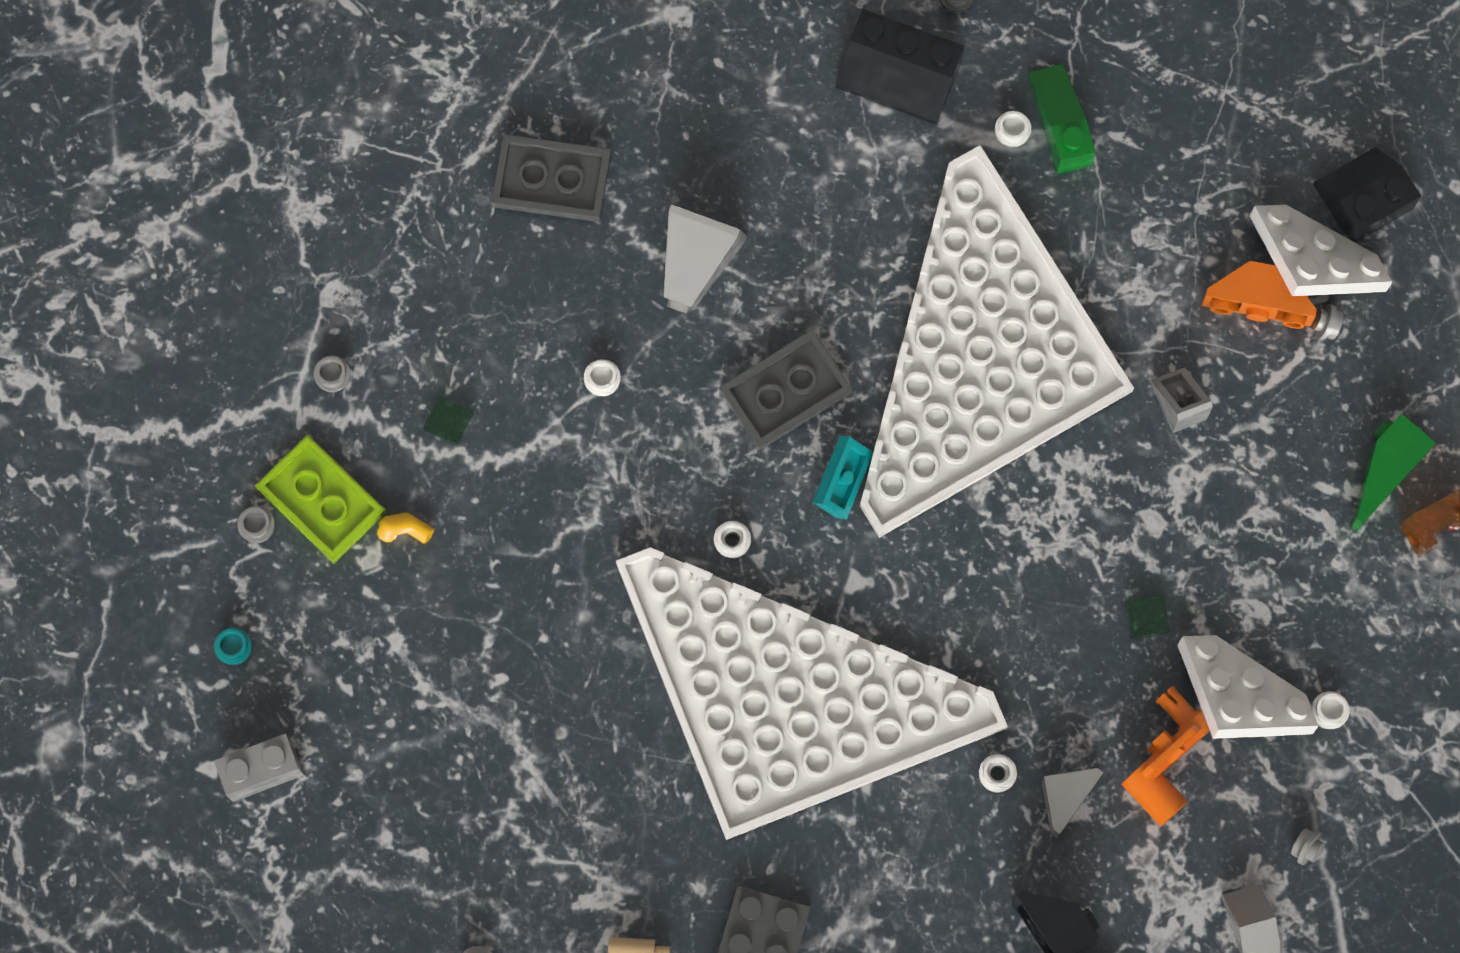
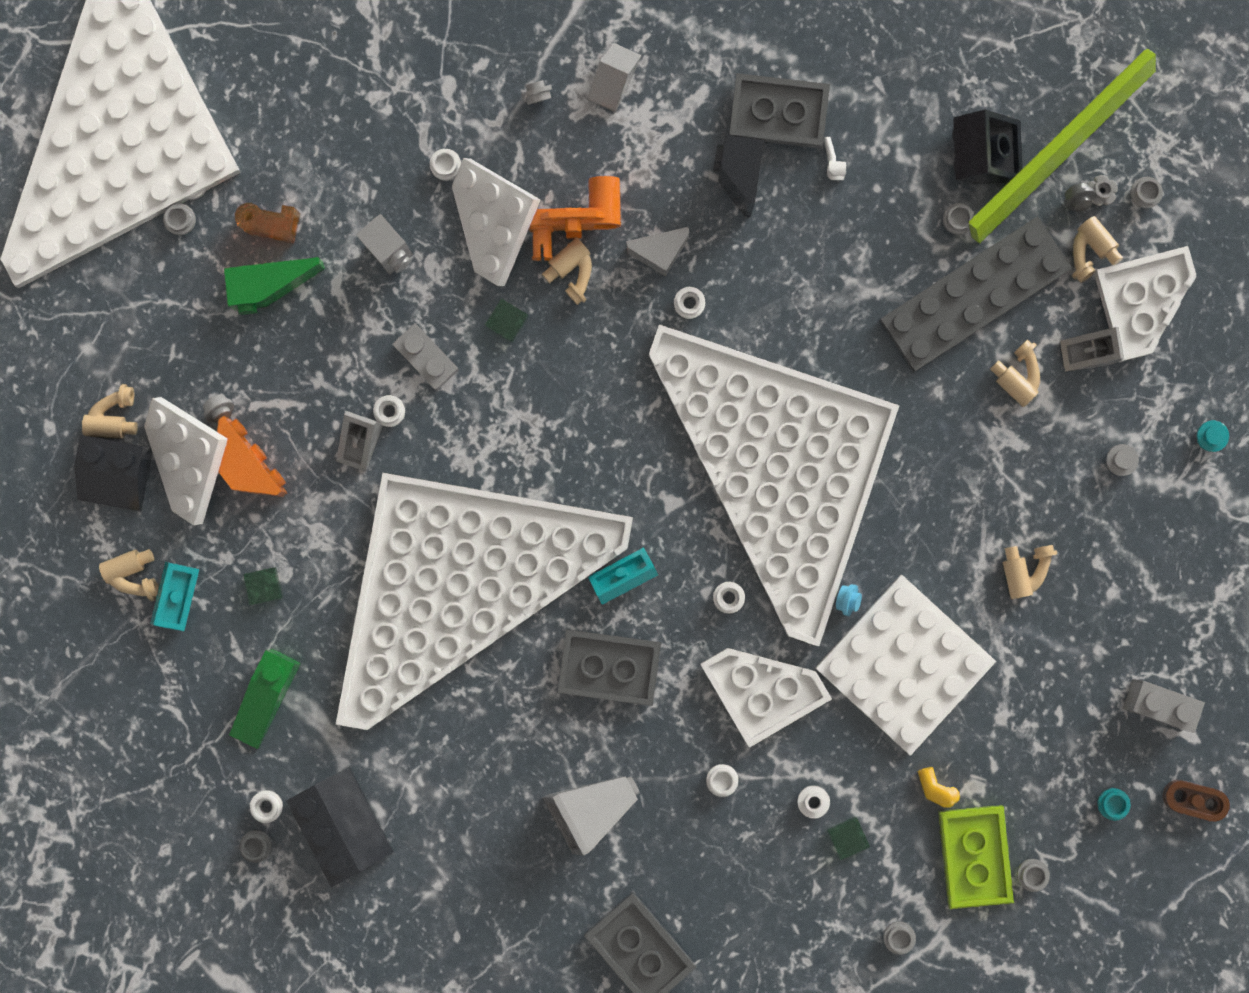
camera: 140 degrees left, 10 degrees up
(160, 707) = (1194, 800): none -> reddish brown plate
(488, 777) = (1017, 574): none -> tan plant
(505, 436) = (804, 797): none -> white plate
(523, 613) = (905, 664): none -> white plate
(623, 625) = (848, 599): none -> medium azure plate
(631, 481) = (763, 692): none -> white plate
(981, 23) = (256, 806): none -> white plate
(1012, 128) = (302, 718): white plate -> none
(1142, 716) = (564, 262): none -> tan plant
(1148, 208) = (263, 586): none -> clear green tile
(1178, 437) = (384, 402): none -> white plate
(1189, 523) = (425, 356): none -> light grey plate
(1215, 135) = (174, 596): none -> teal plate
(1281, 128) = (118, 568): none -> tan plant
(1313, 583) = (385, 245): none -> light grey brick
(1406, 229) = (102, 426): none -> tan plant

